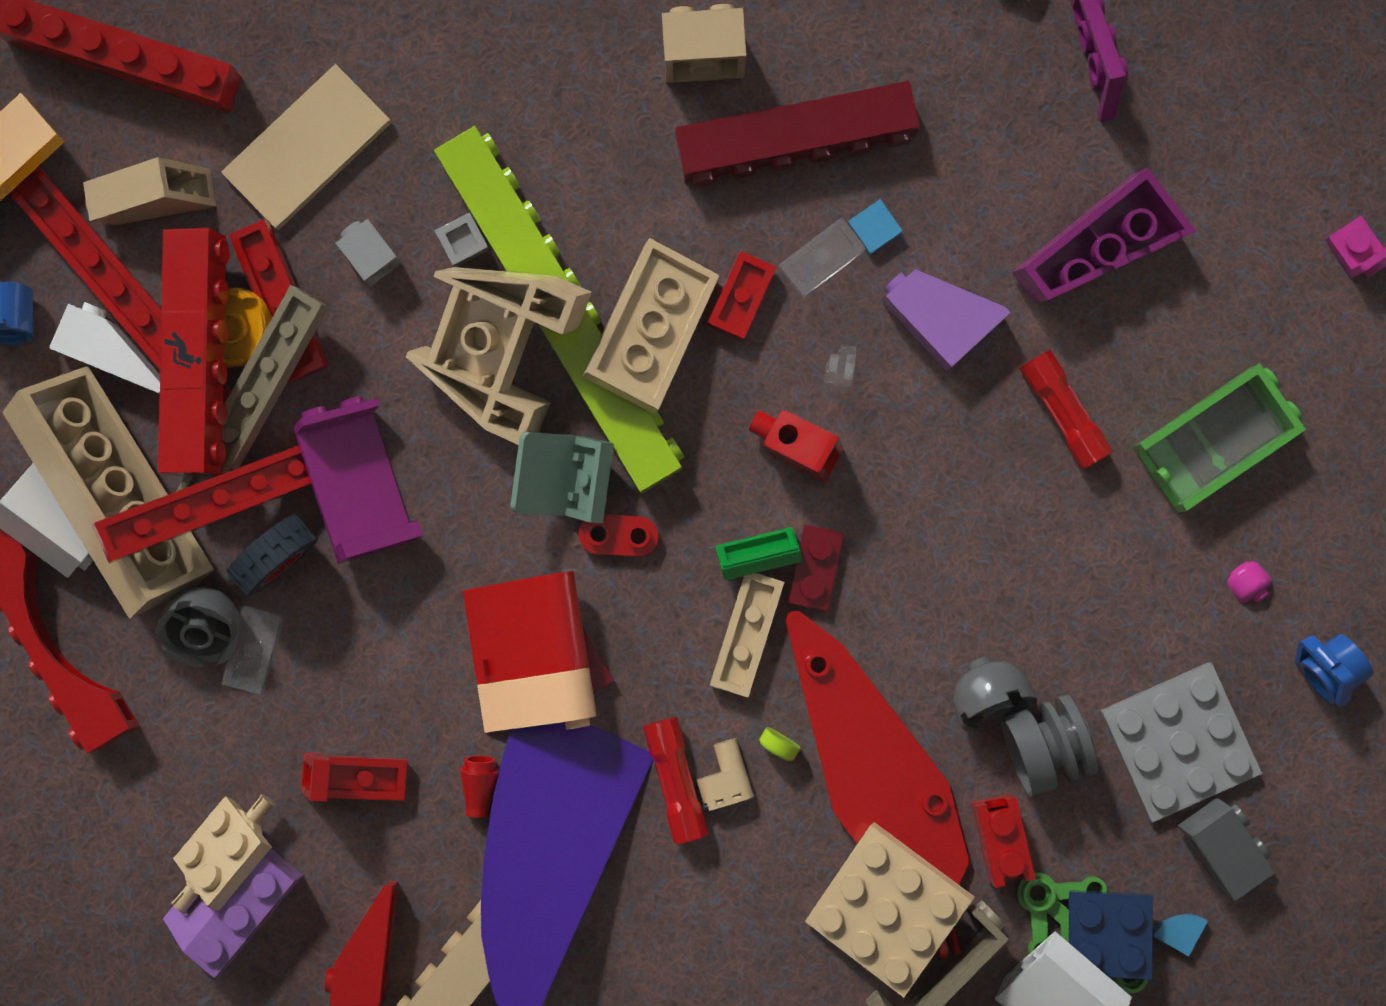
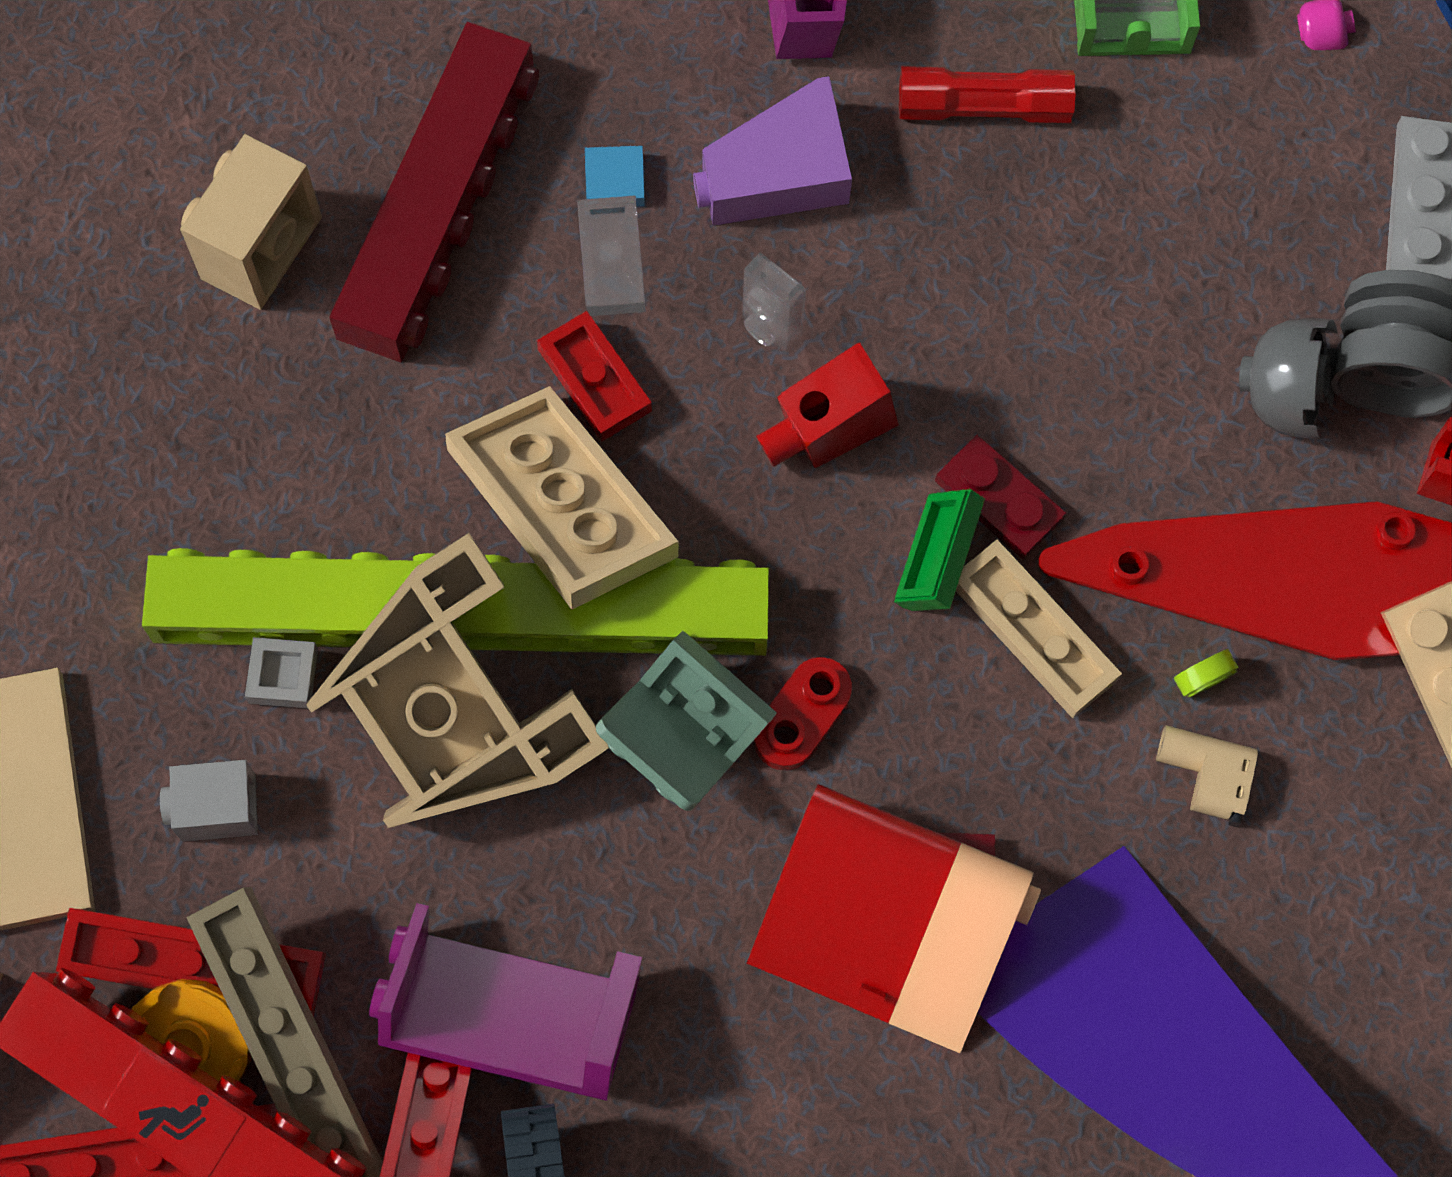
camera: 60 degrees left, 15 degrees down
(478, 784) = (1027, 1100): red cone -> none
(683, 809) = (1223, 847): red axle -> none

